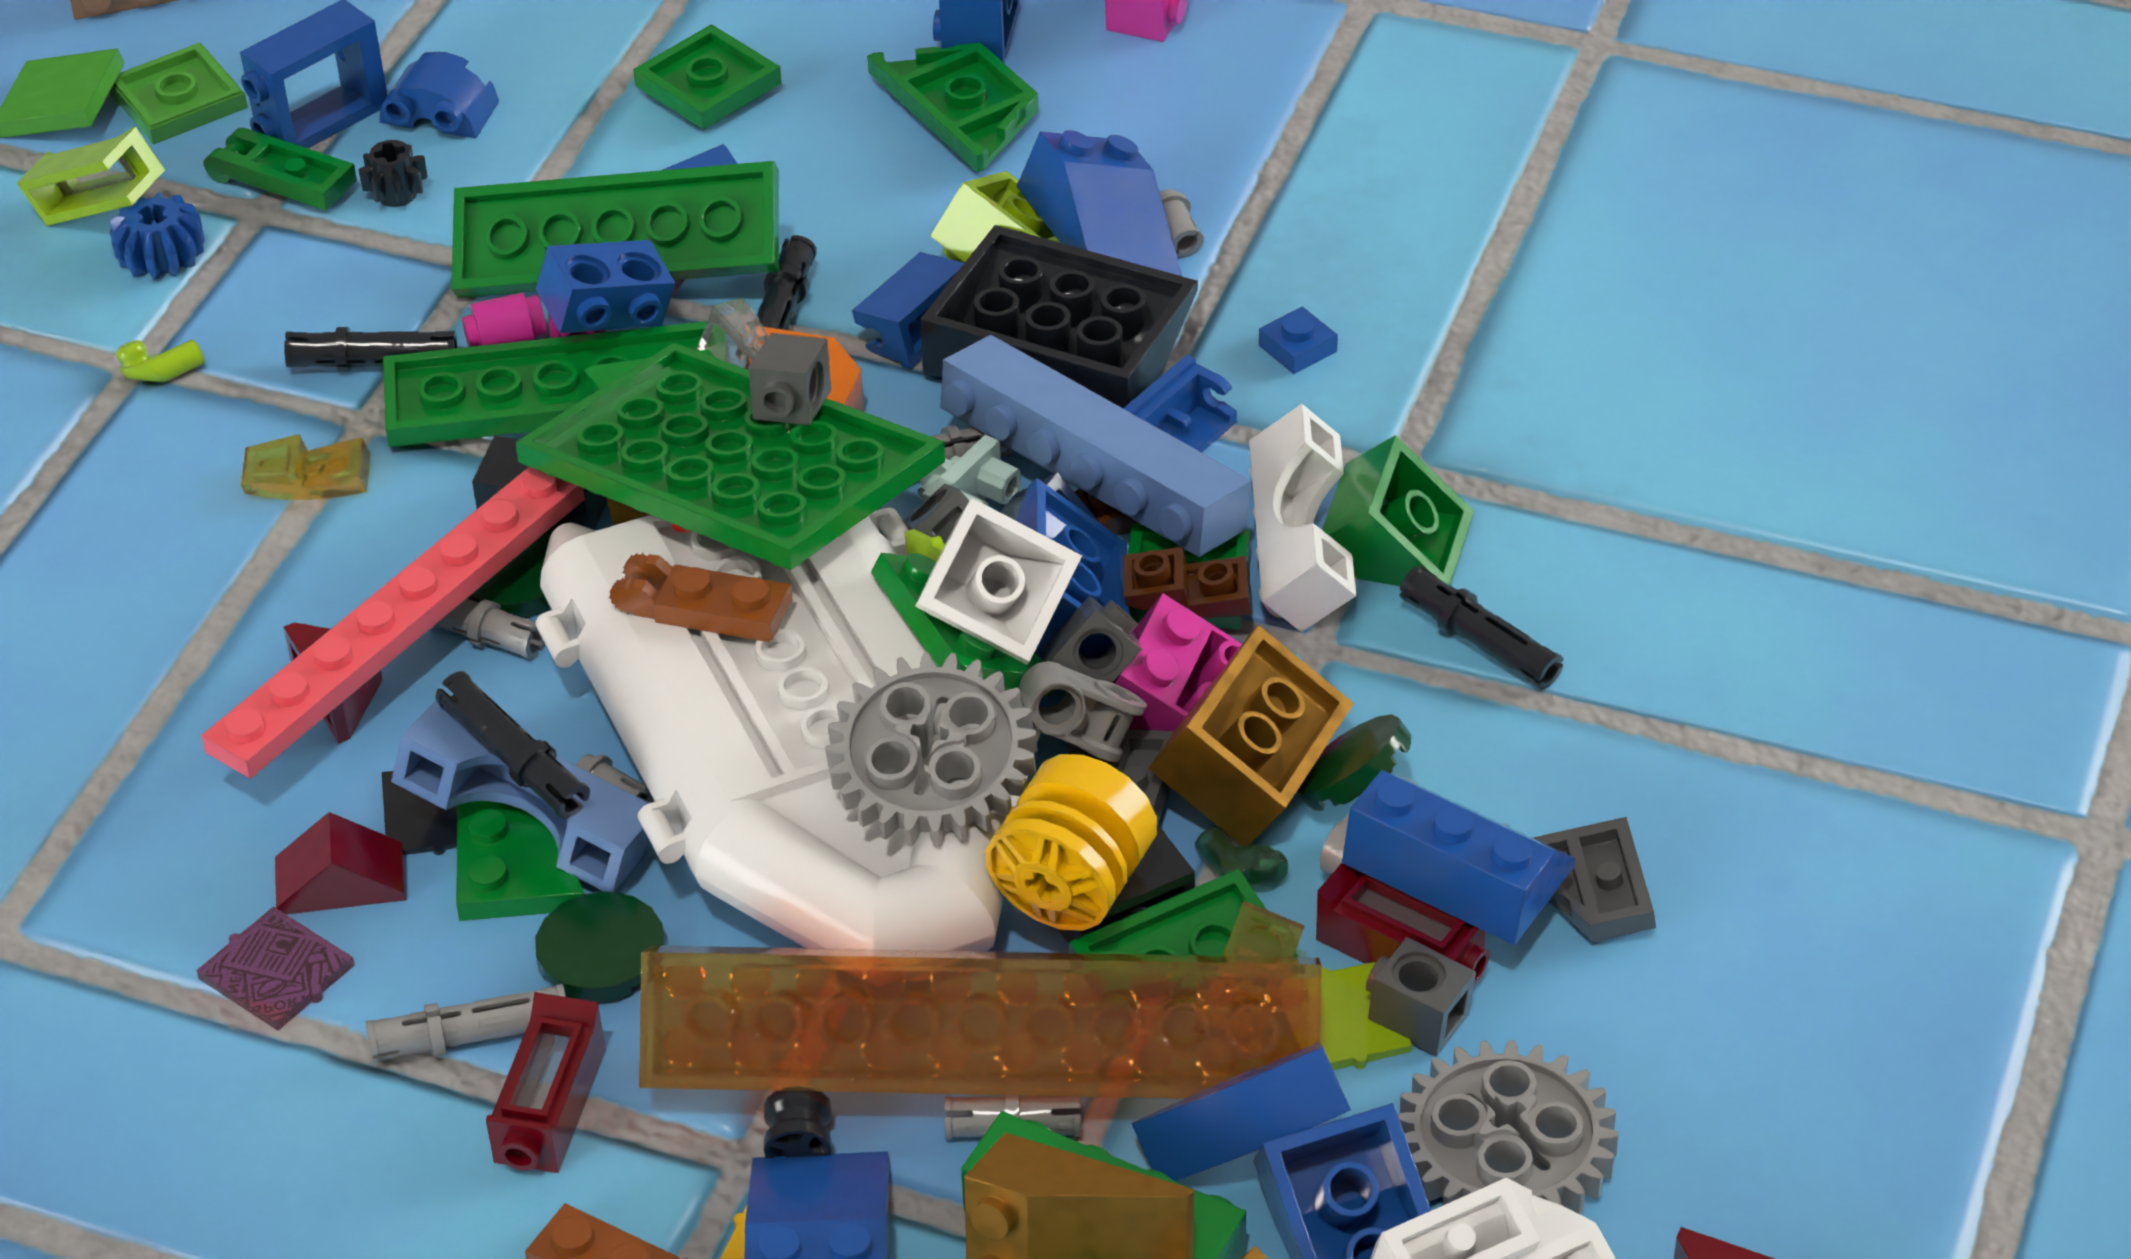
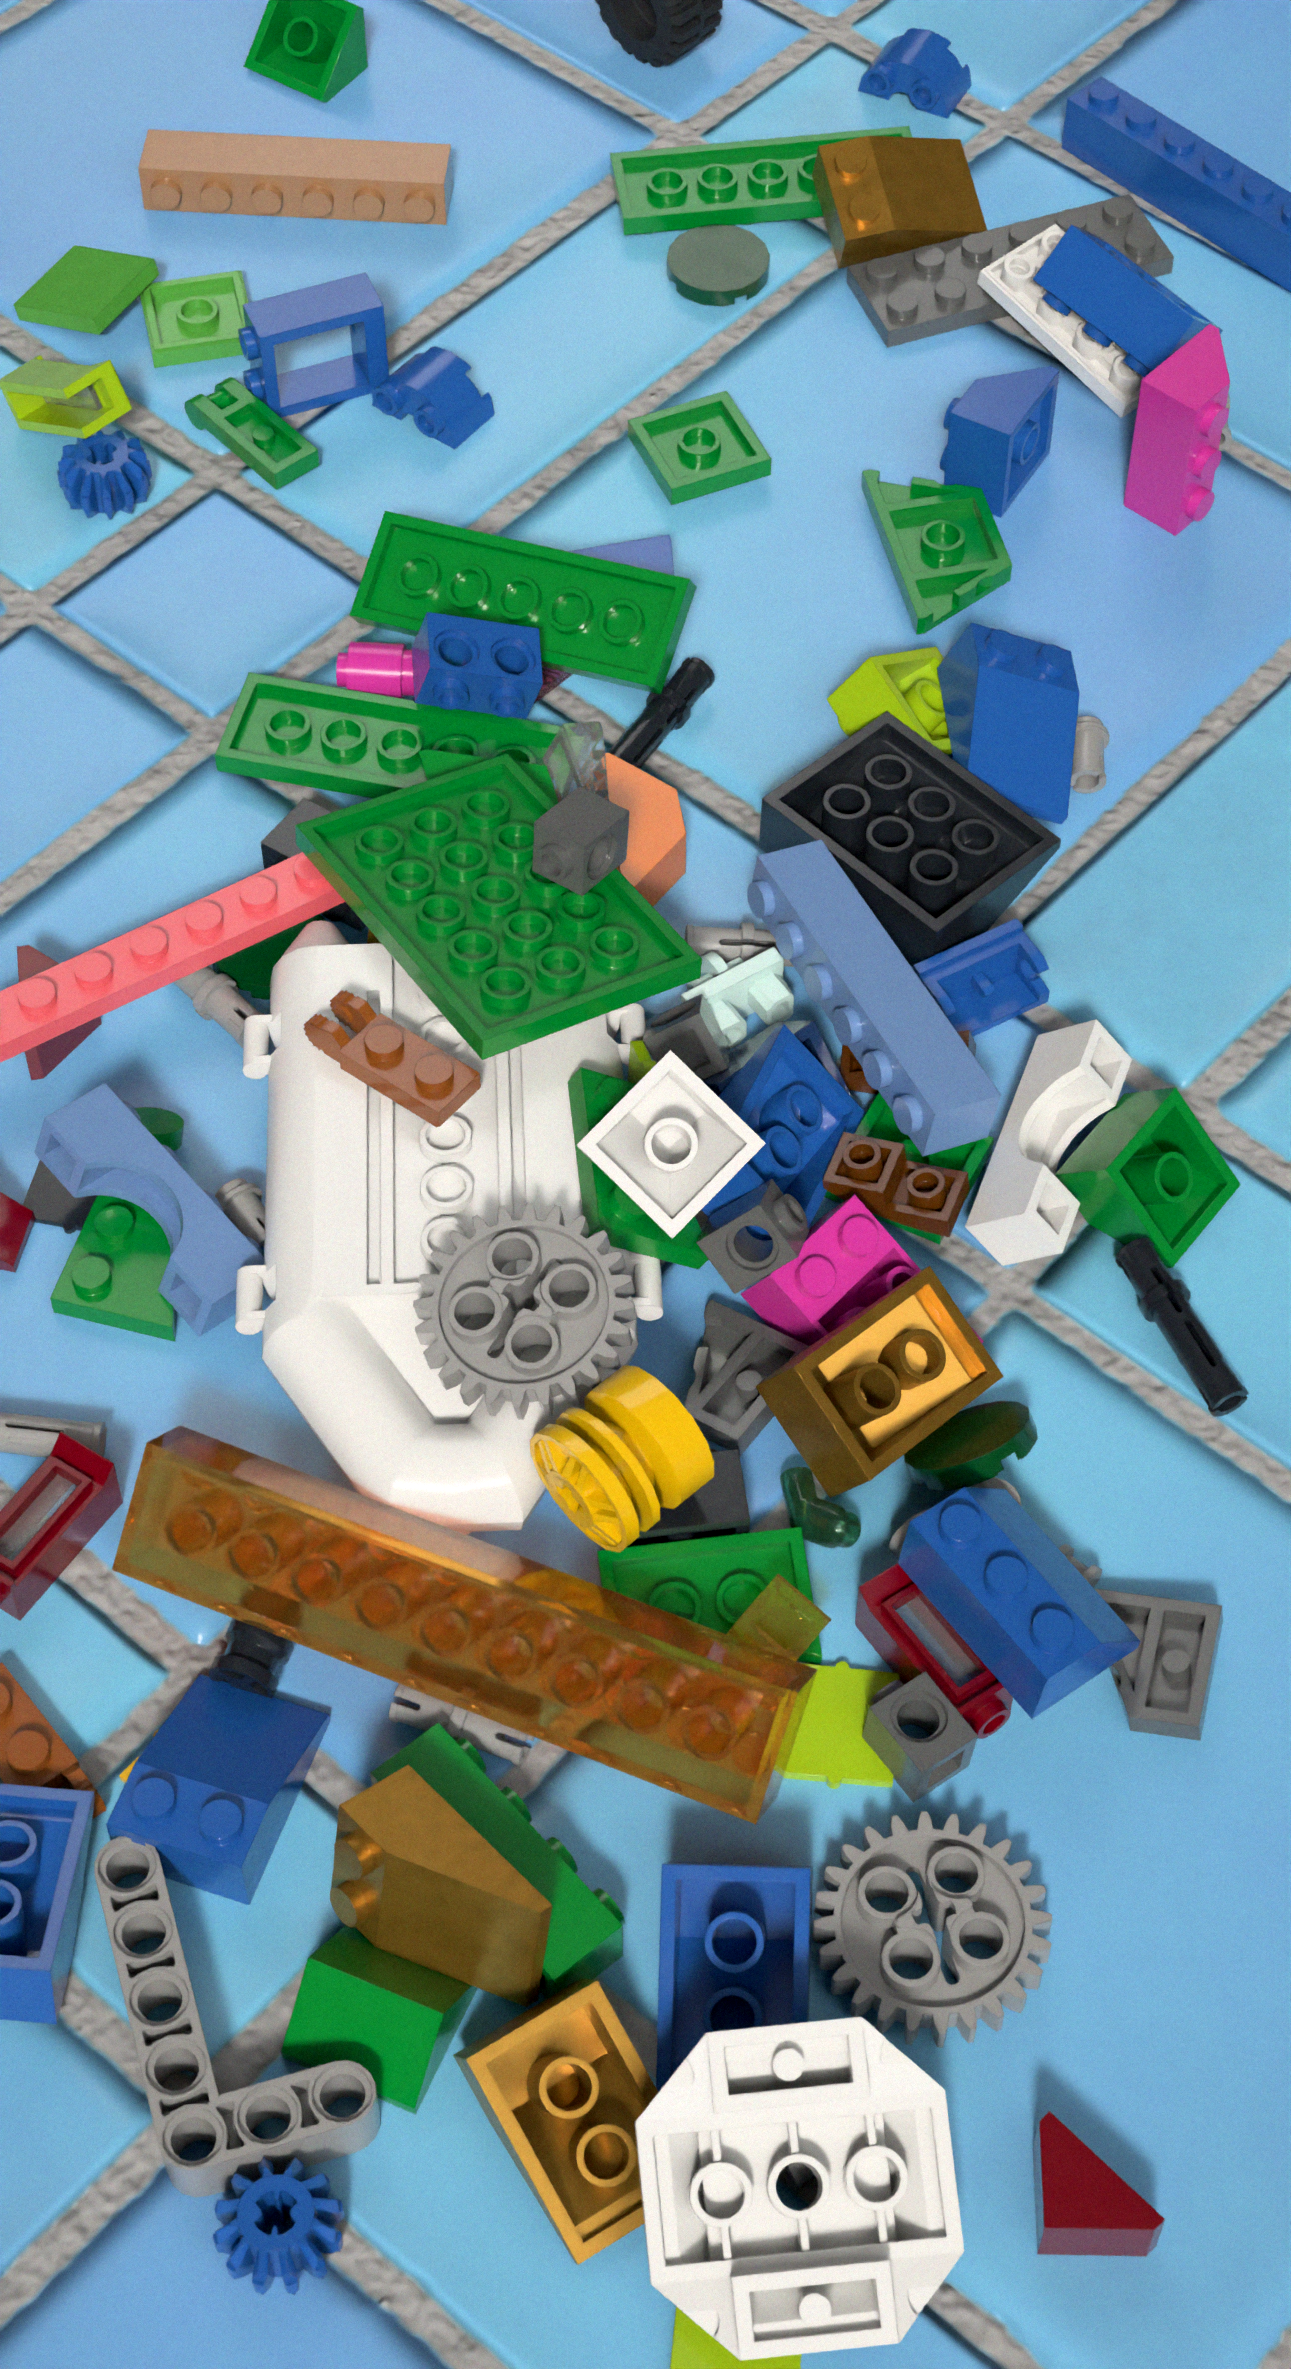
camera: 20 degrees right, 10 degrees up
(158, 367) = (44, 616): lime arm -> none
(293, 472) = (119, 771): clear yellow slope -> none
(353, 349) = (227, 653): black pin -> none
(393, 173) = (351, 469): black gear -> none
(529, 760) = (153, 1181): black pin -> none
(597, 945) = (161, 1384): dark green tile -> none
(900, 304) = (767, 764): blue hinge -> none
(1090, 714) = (721, 1308): light grey piece -> none
(1242, 1114) = (671, 1816): blue slope -> none
(1298, 340) = (1150, 927): blue plate -> none

